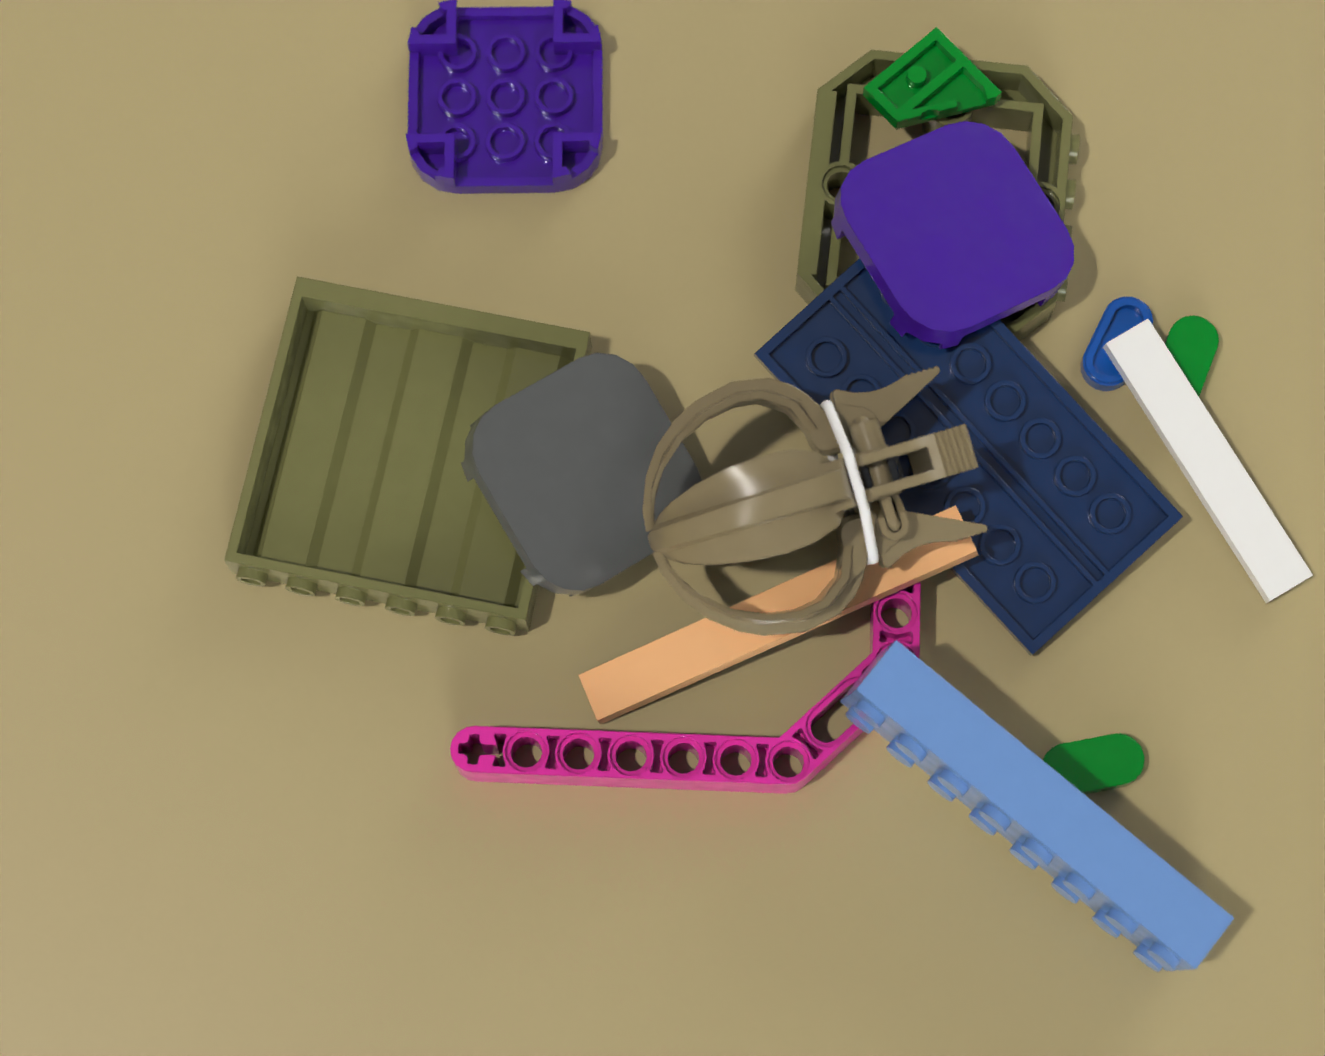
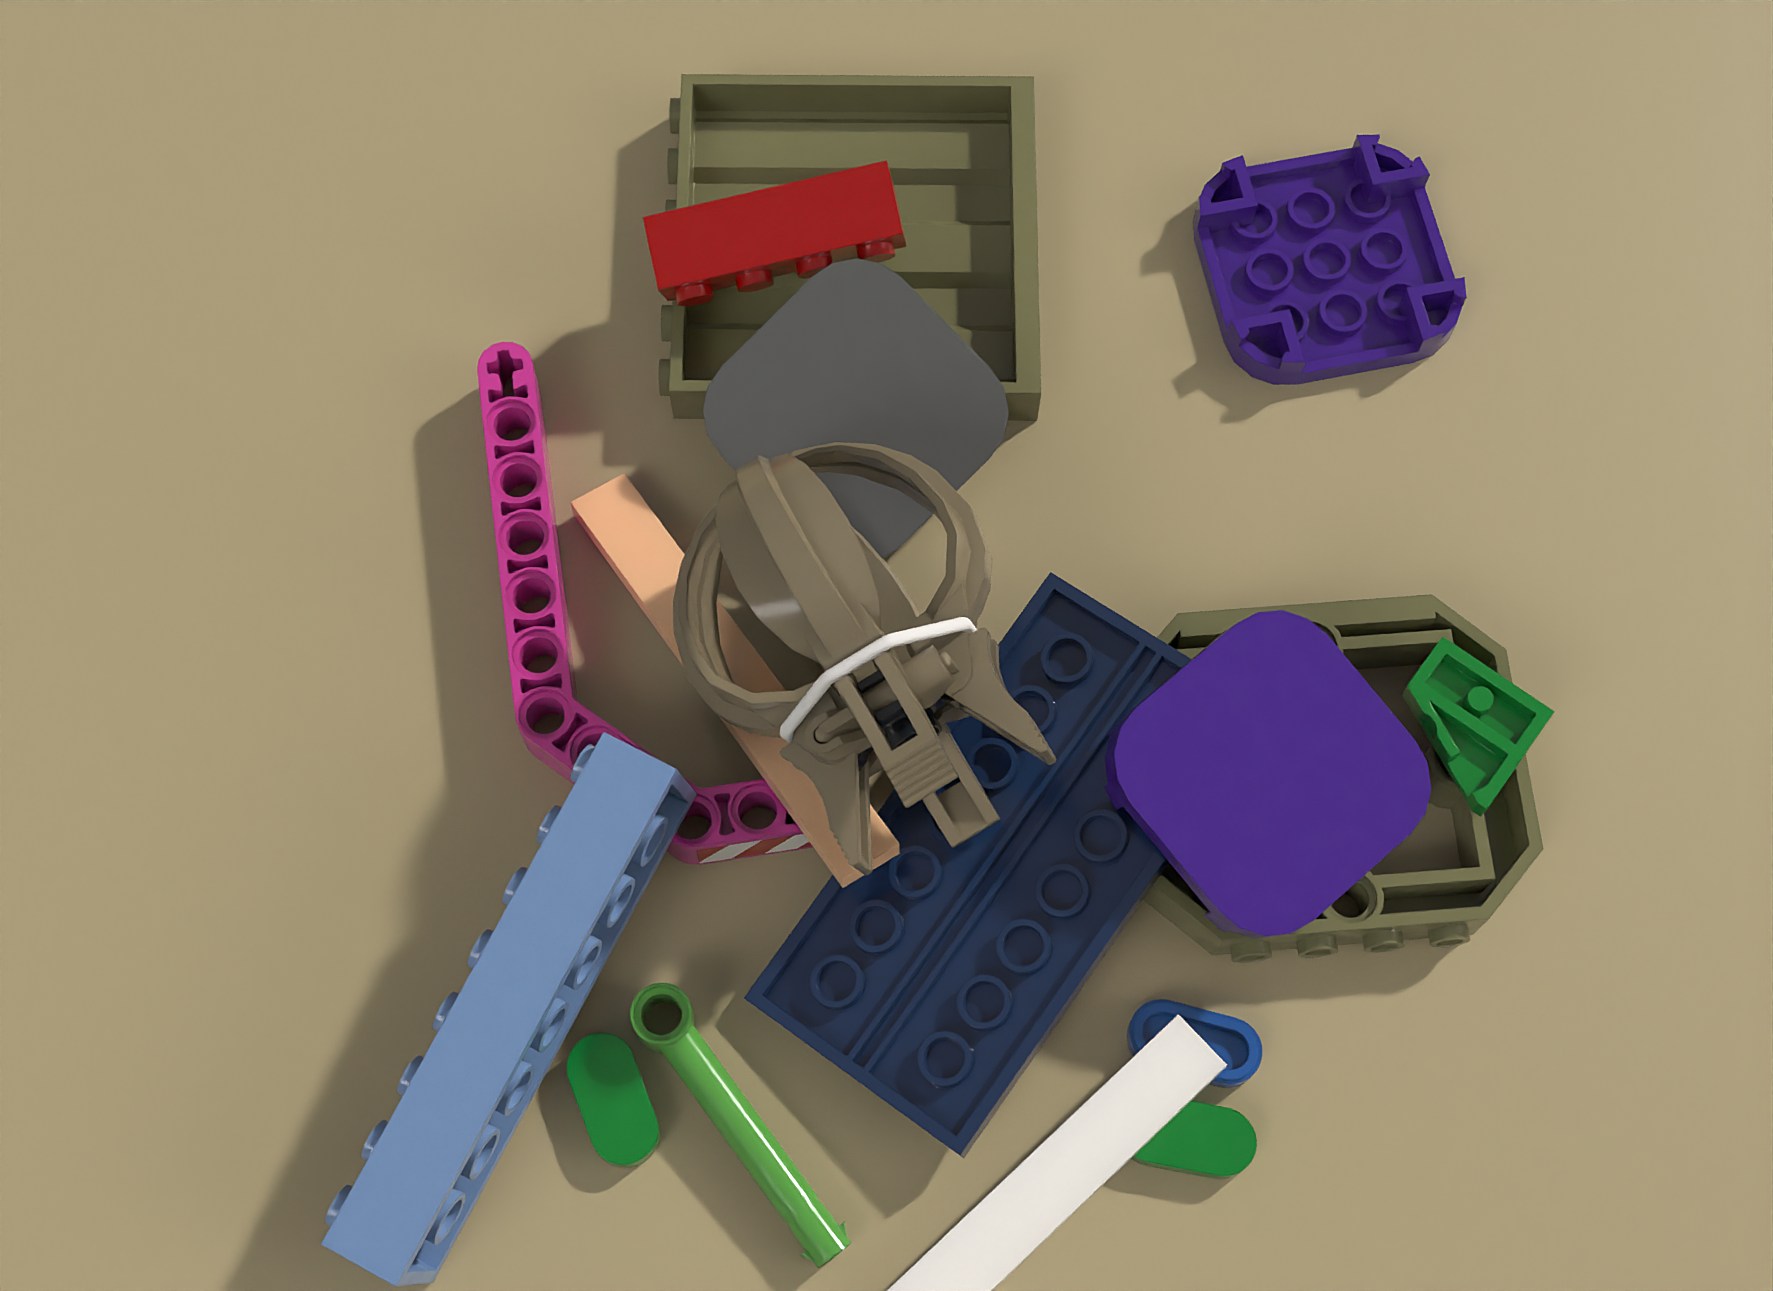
camera: 75 degrees right, 5 degrees down
(420, 498) = (775, 233): none -> red wedge
(1123, 675) = (740, 1125): none -> bright green piece

